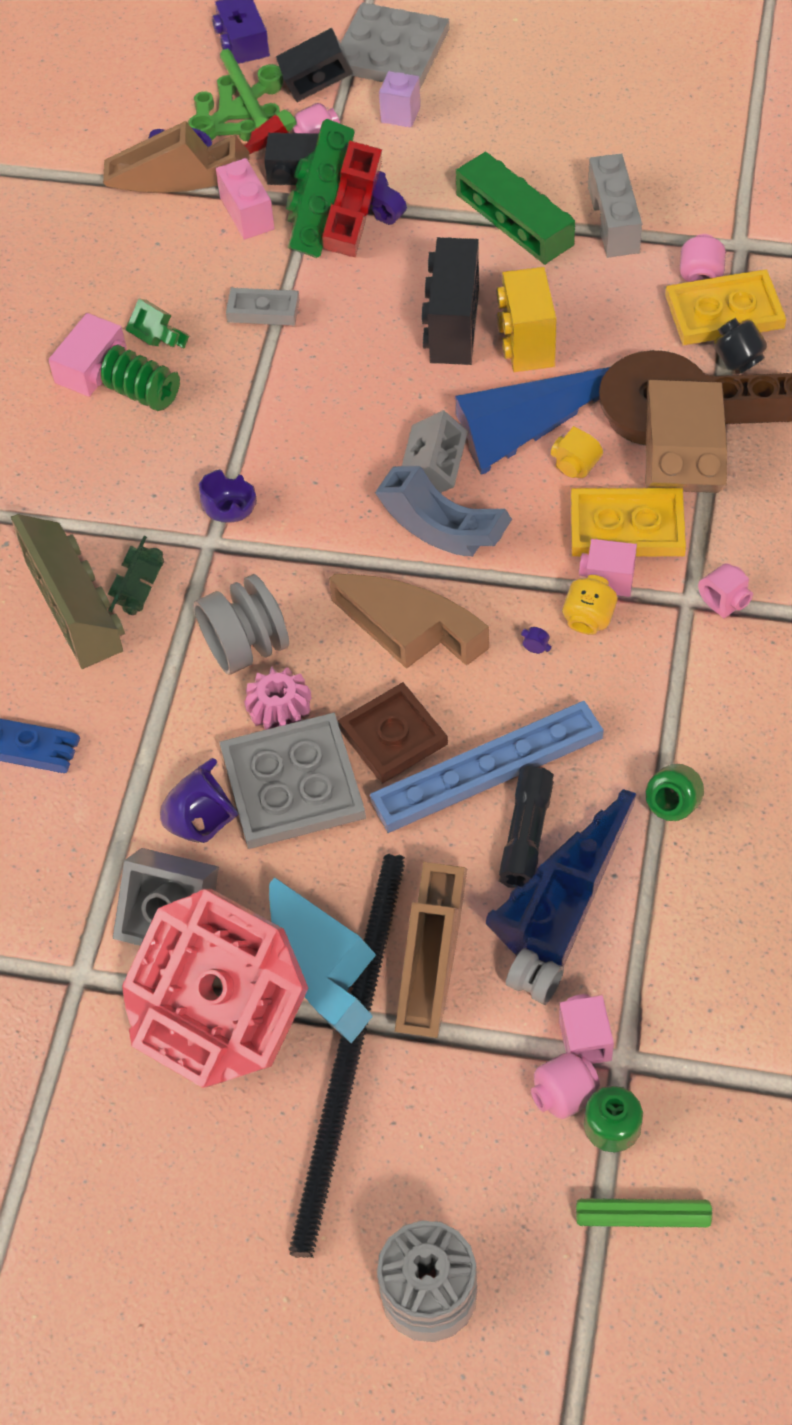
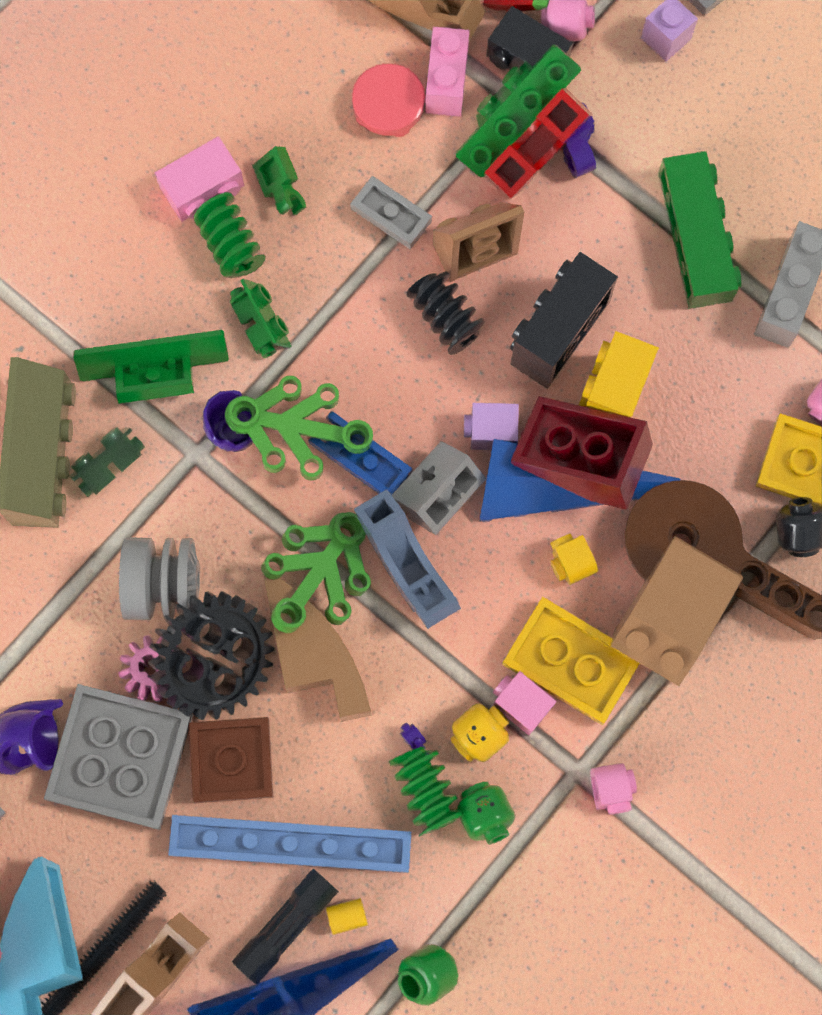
camera: 25 degrees right, 20 degrees up
(130, 492) = (152, 366): none -> green bracket
(209, 239) = (388, 99): none -> coral tile
(213, 426) = (254, 303): none -> green hinge
(242, 476) = (293, 424): none -> bright green plant
(318, 665) = (196, 688): none -> black gear
(346, 470) = (374, 467): none -> blue hinge
(348, 279) = (479, 238): none -> medium nougat slope
(353, 345) = (445, 311): none -> black piece
(376, 527) = (322, 566): none -> bright green plant
(441, 392) = (491, 422): none -> lavender brick
(535, 366) = (585, 450): none -> dark red slope
(573, 665) = (426, 789): none -> green piece
(574, 794) = (346, 916): none -> yellow hinge
(636, 657) = (486, 812): none -> green head

